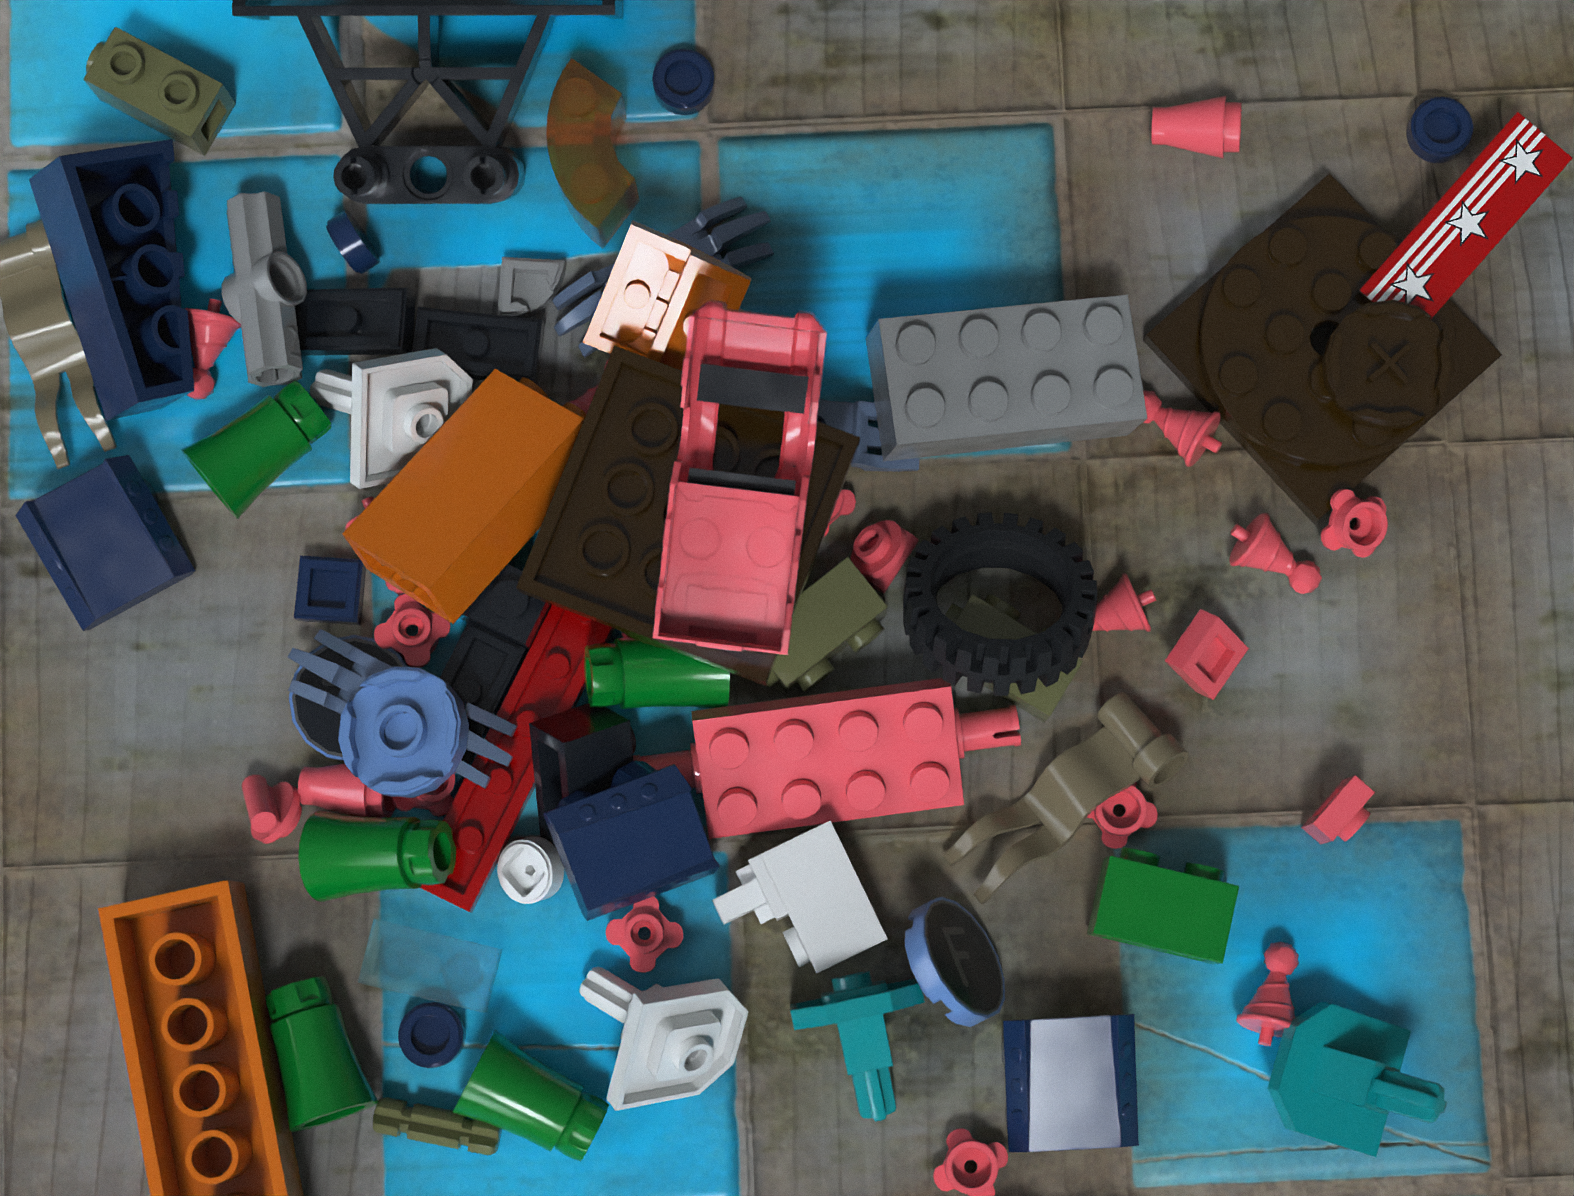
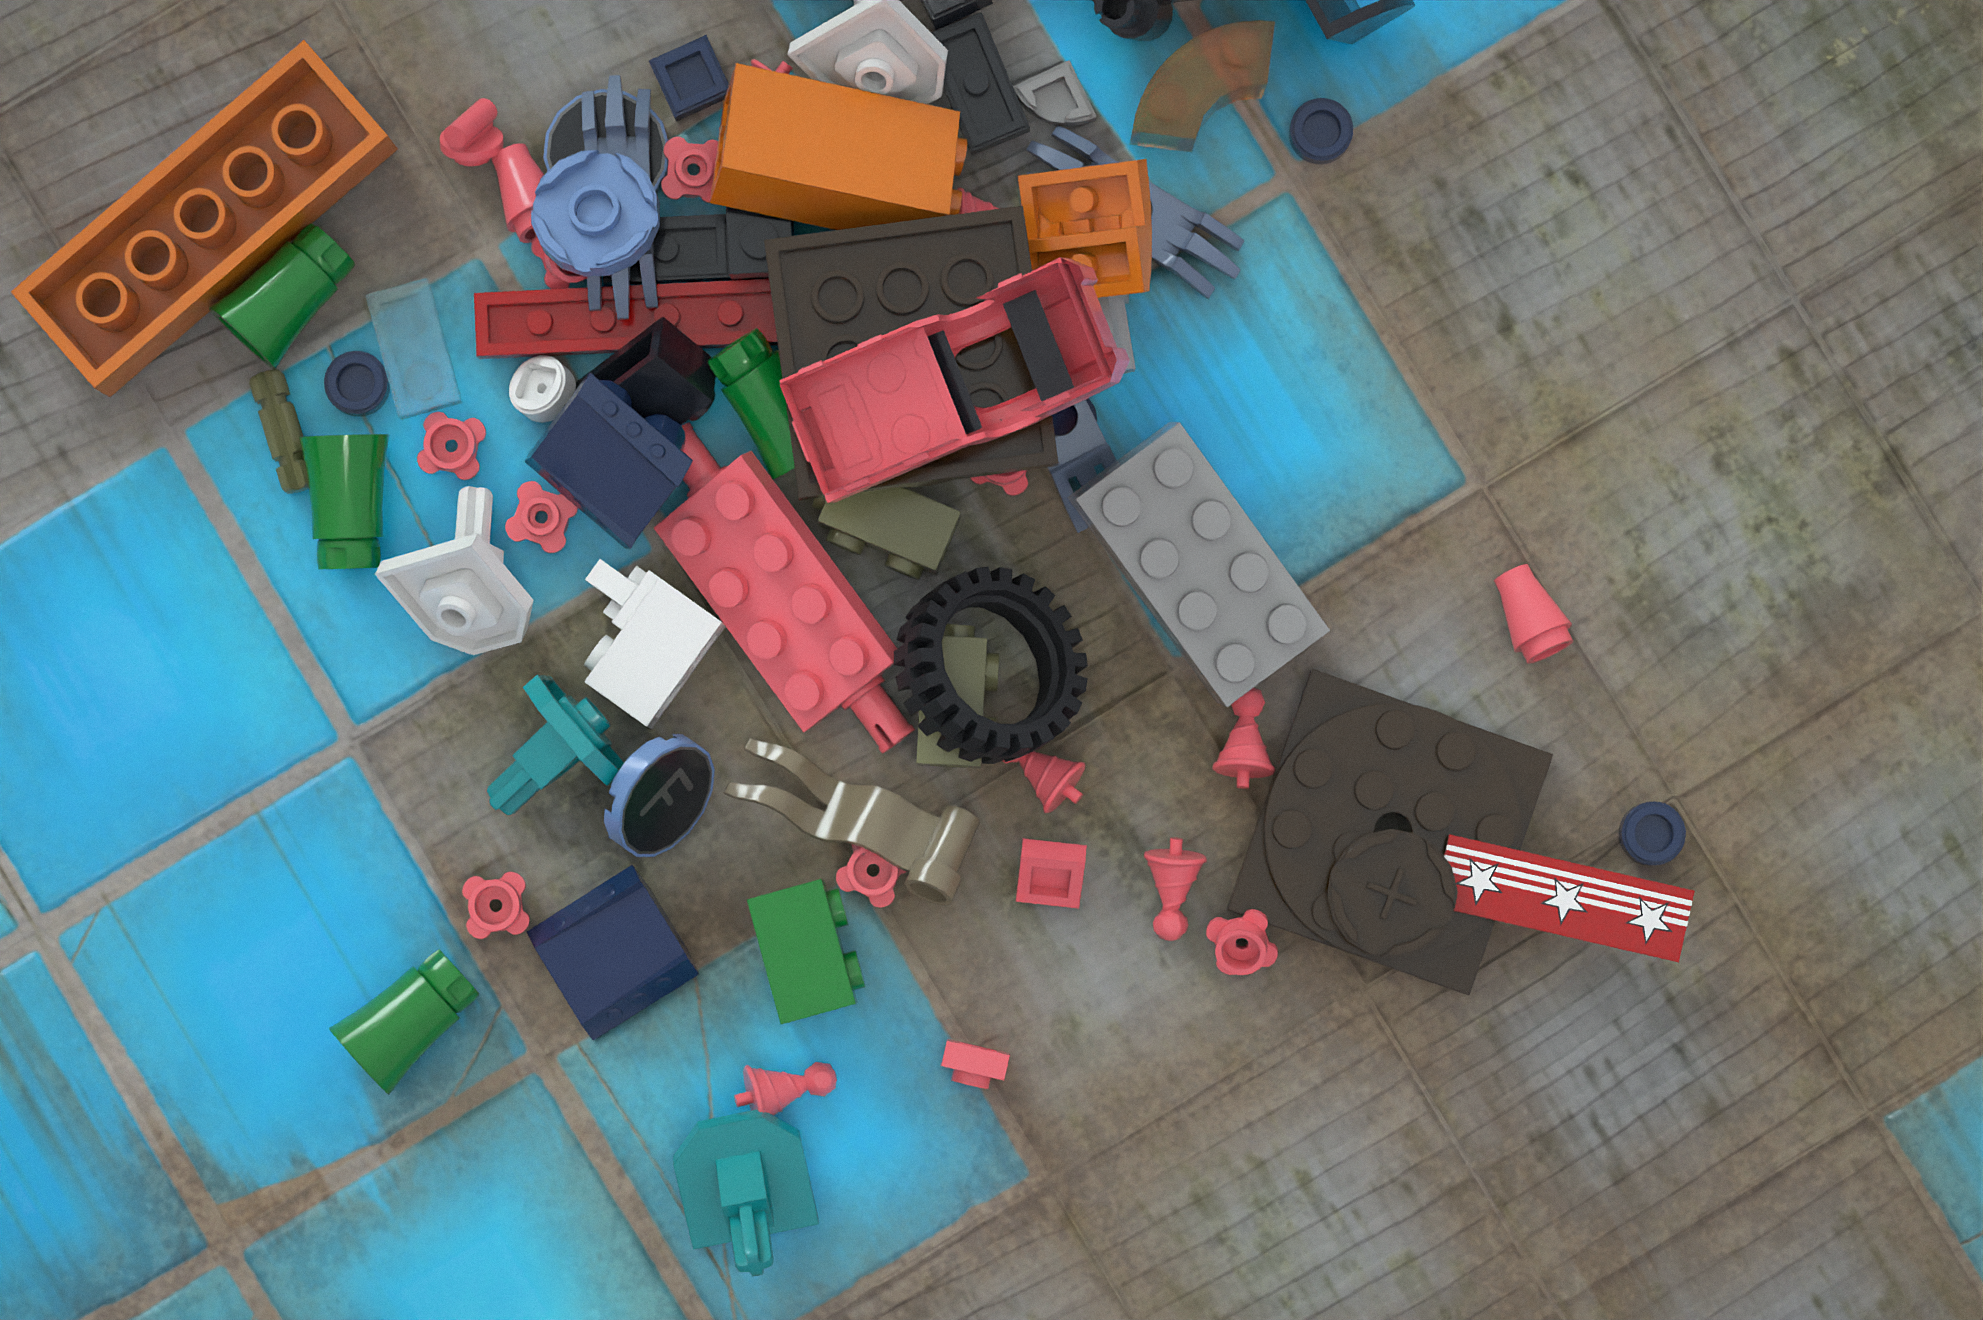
camera: 55 degrees right, 5 degrees up
(372, 854) = (478, 245): green plant -> none
(517, 980) = (443, 429): none -> coral plate
(881, 552) = (987, 540): coral plate -> none

